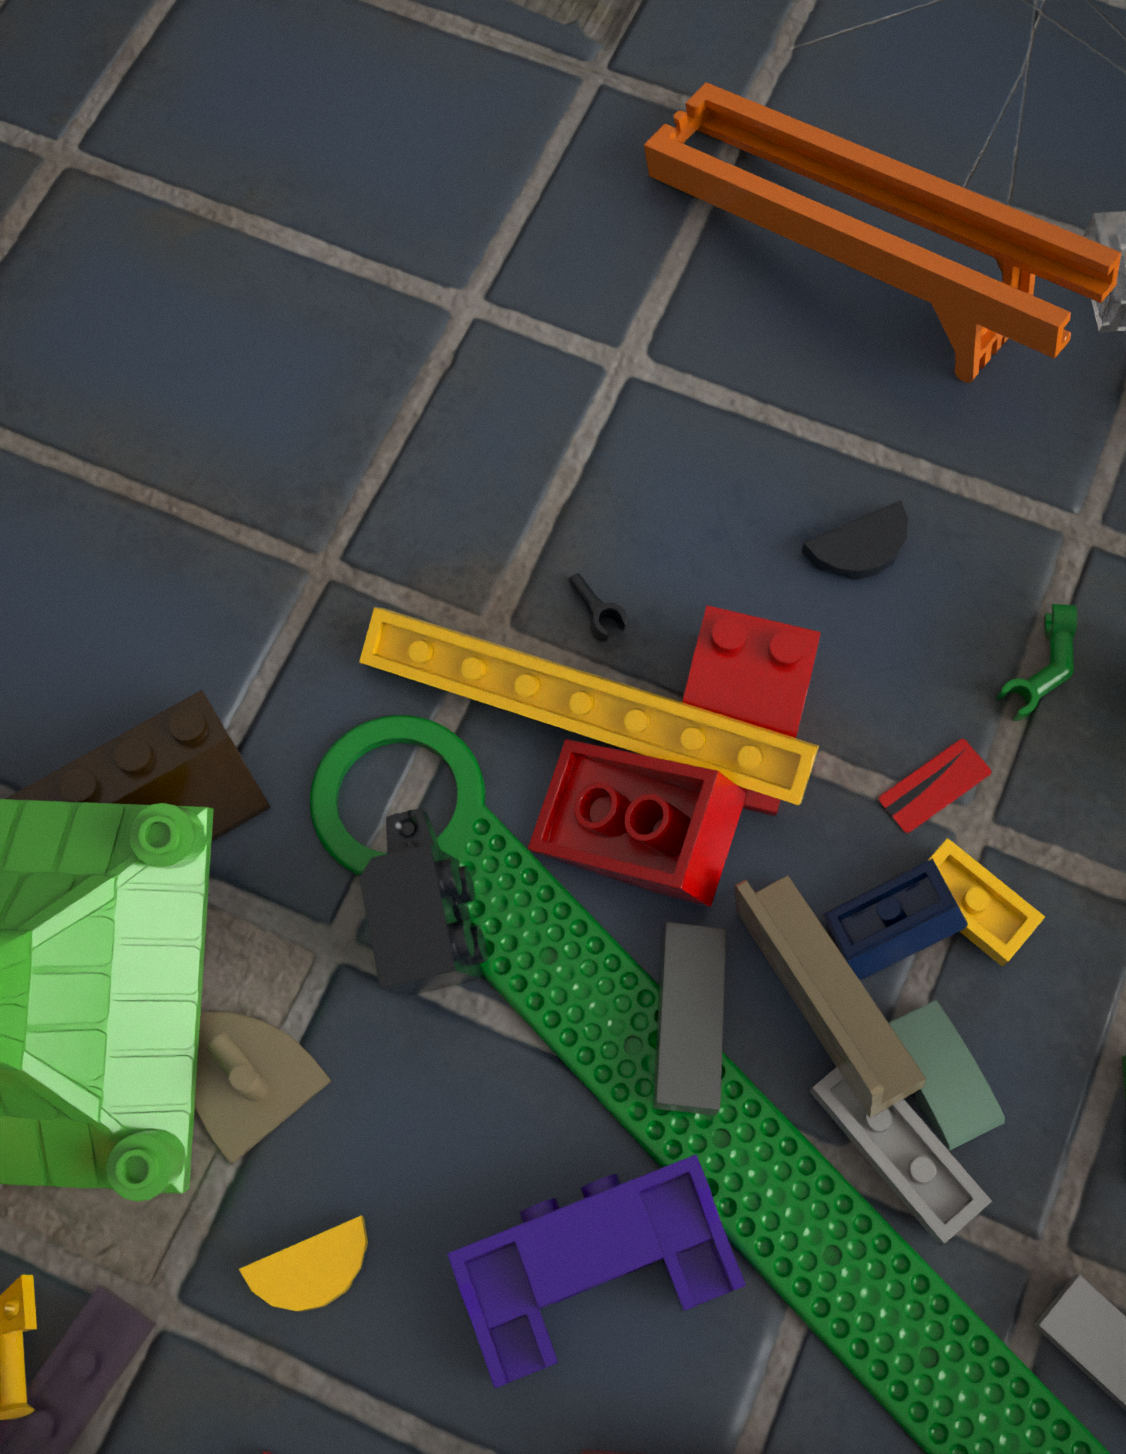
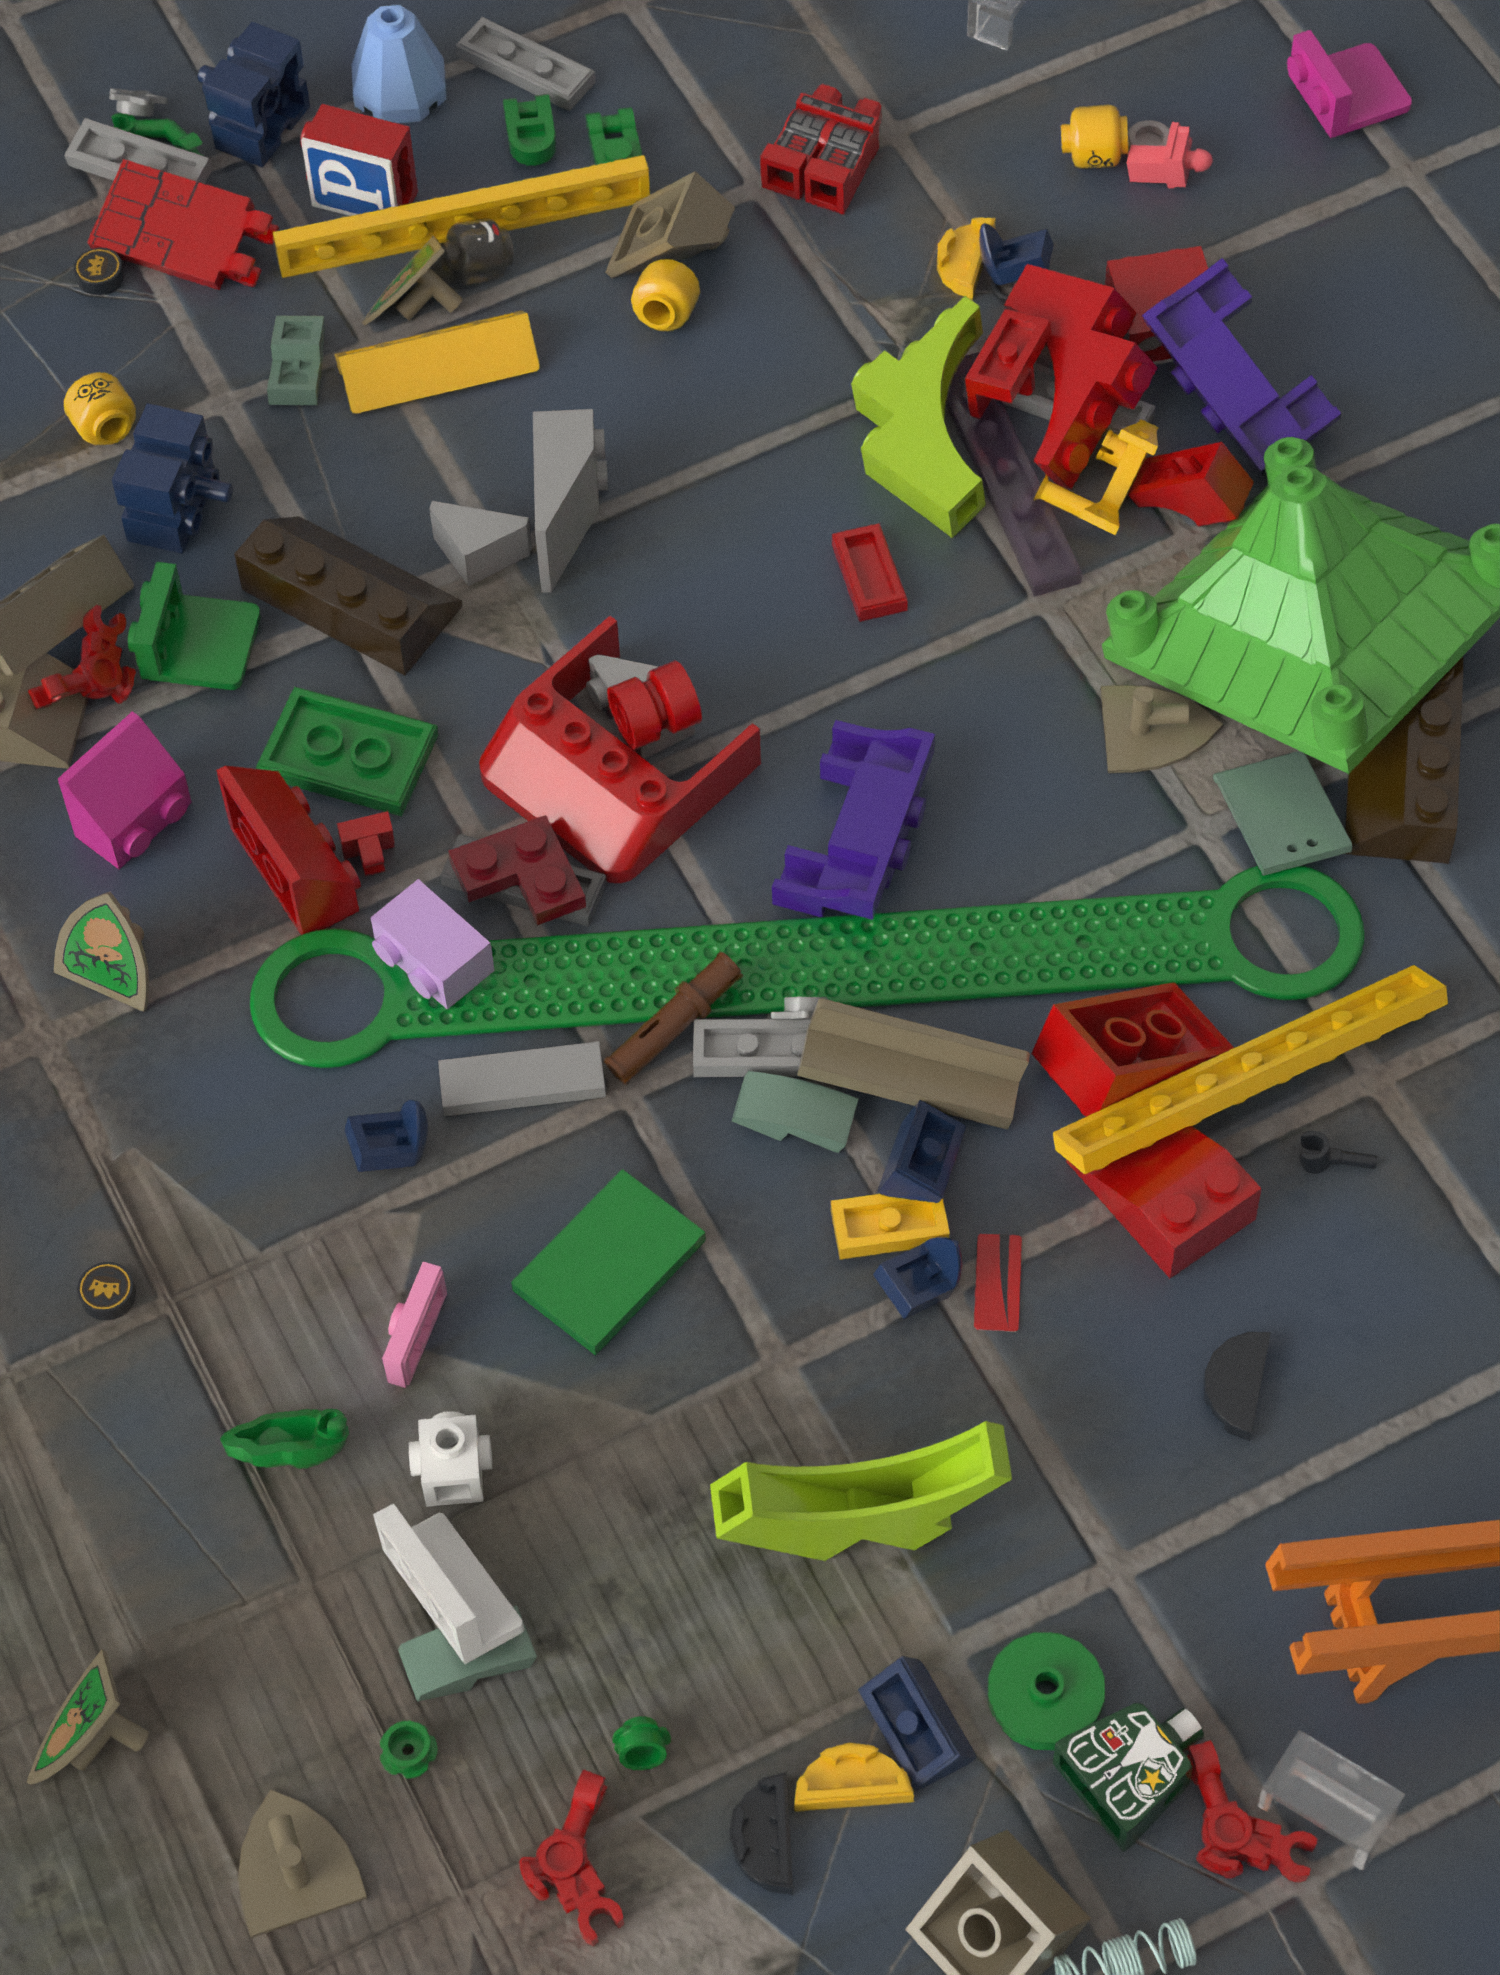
camera: 130 degrees right, 10 degrees down
(270, 882) = (1282, 811): none -> sand green container
(311, 1270) = (993, 684): yellow tile -> none
(420, 911) = (1169, 854): black hinge -> none
(690, 1019) = (965, 985): dark grey tile -> none
(843, 1142) = (797, 1008): none -> light grey plate
(936, 1263) = (689, 1003): none -> reddish brown pin
(1003, 835) = (921, 1275): none -> dark blue plate
(1060, 630) = (1044, 1460): green arm -> none

